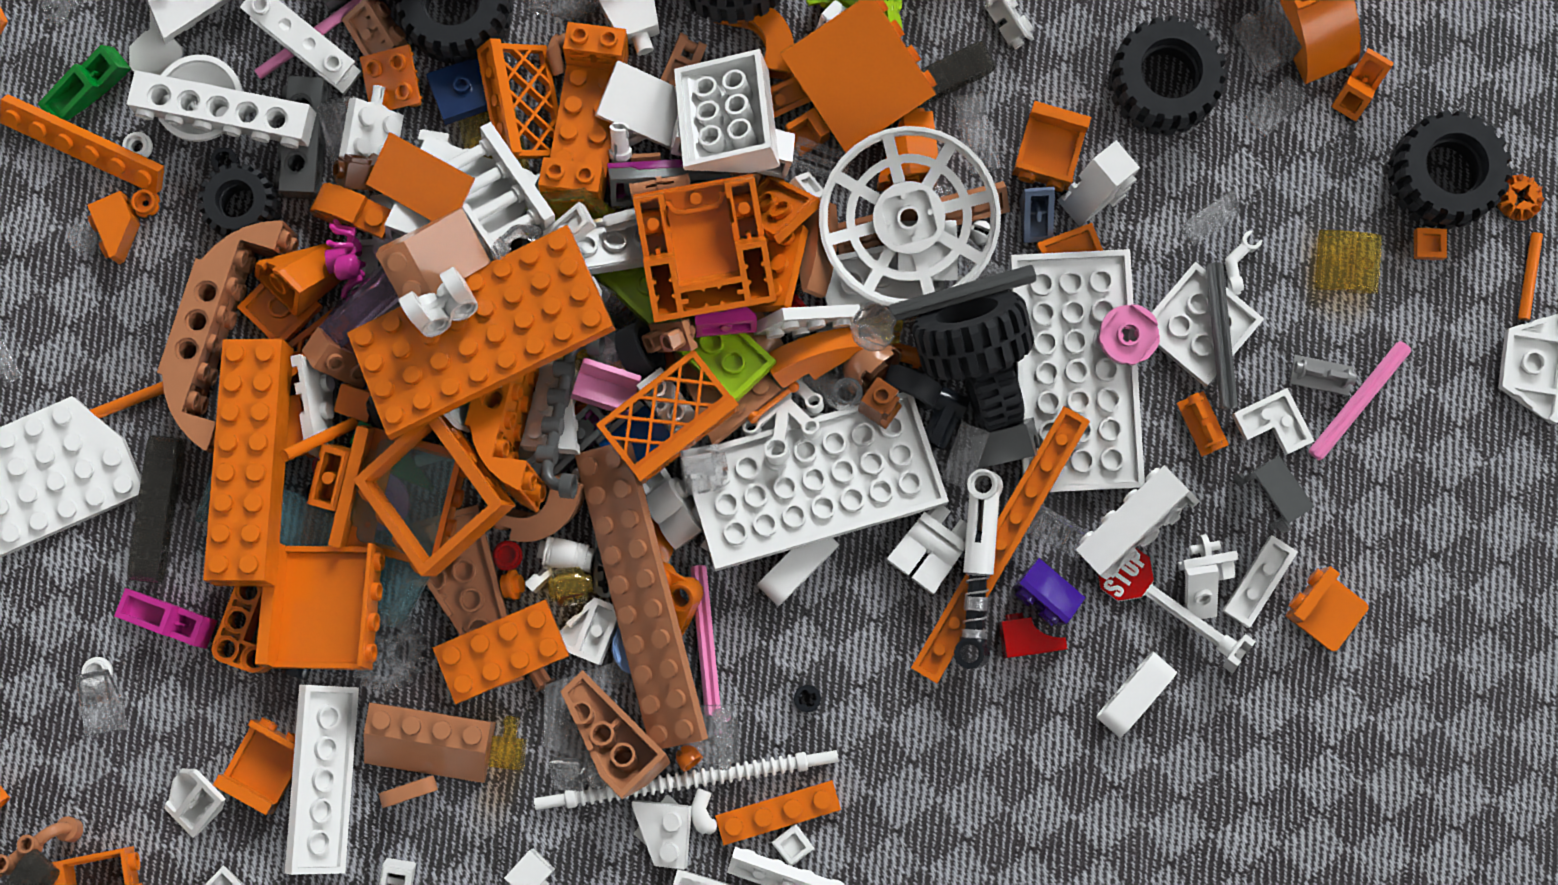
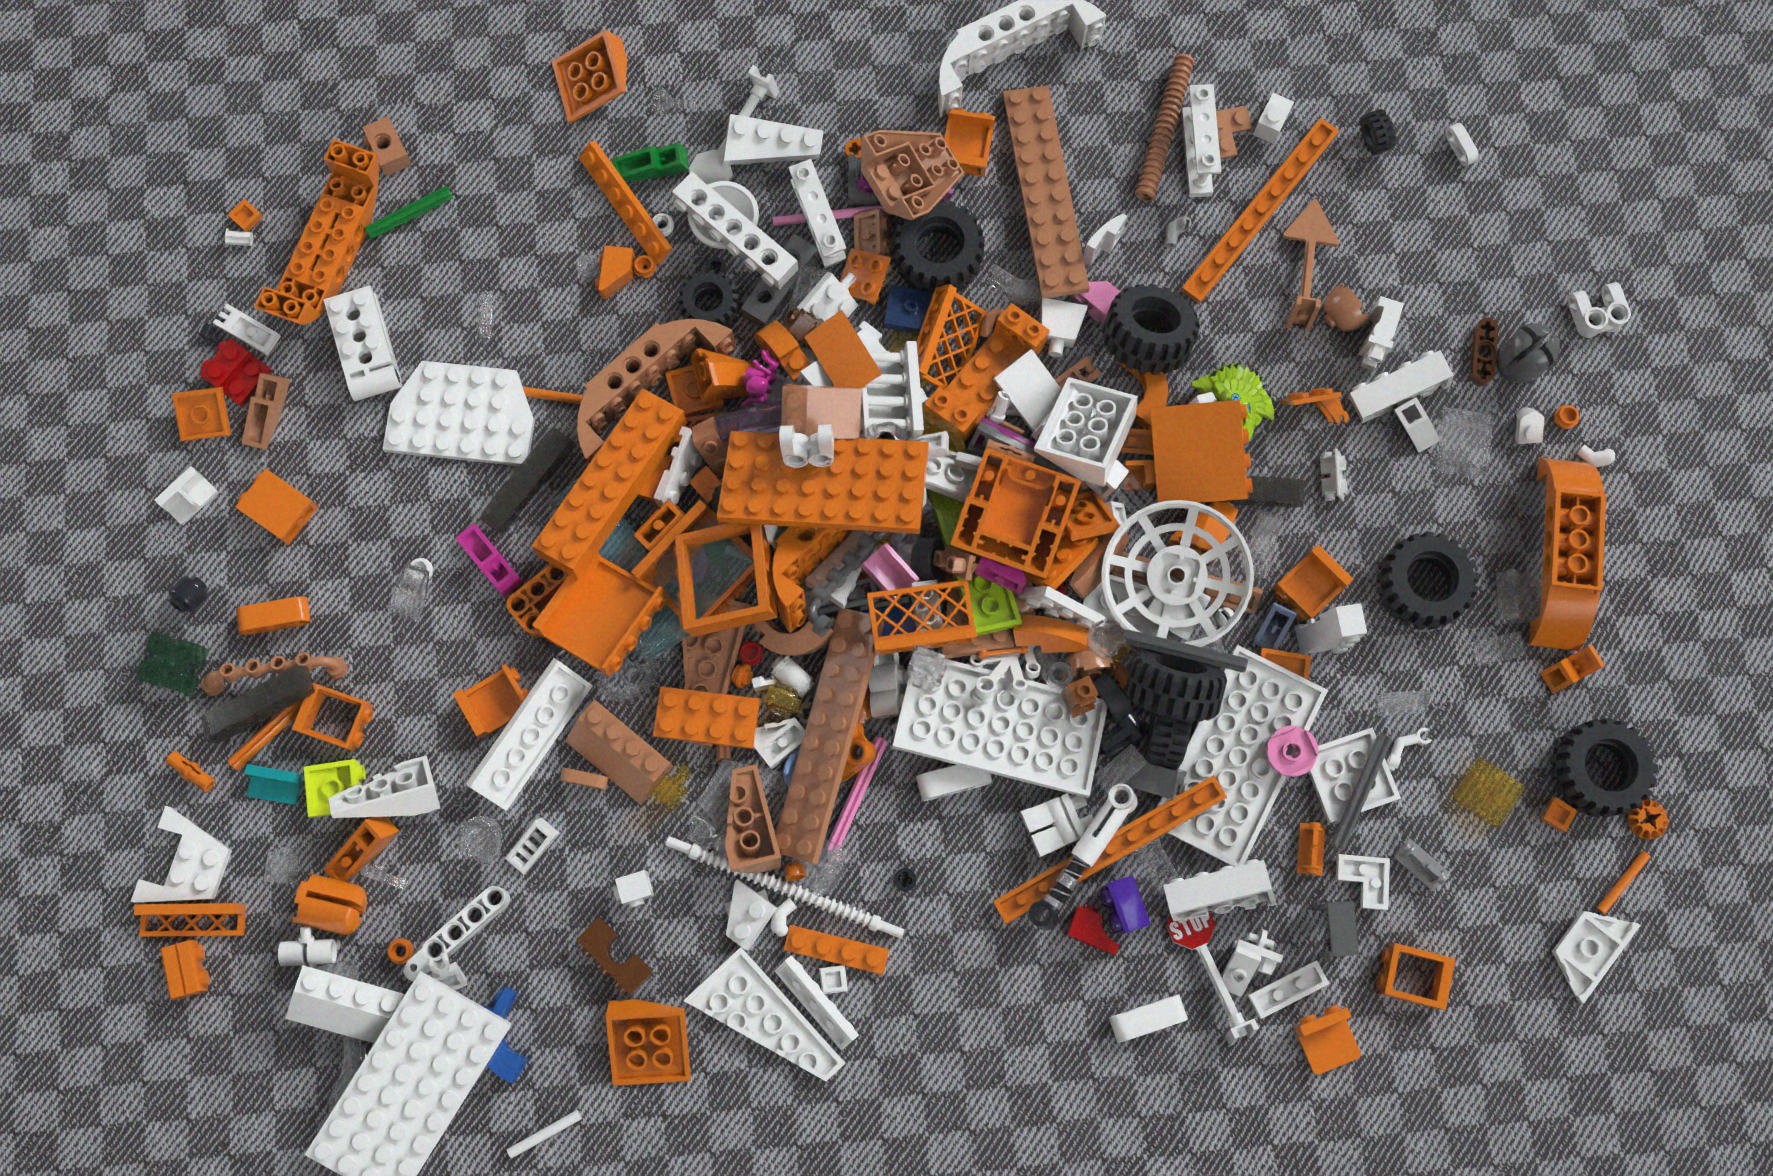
camera: 30 degrees right, 5 degrees down
(193, 801) = (432, 698): white slope -> none
(318, 439) = (667, 494): orange bar -> none
(1359, 400) = (1440, 900): bright pink axle -> none
(1407, 484) = (1441, 982): none -> orange window

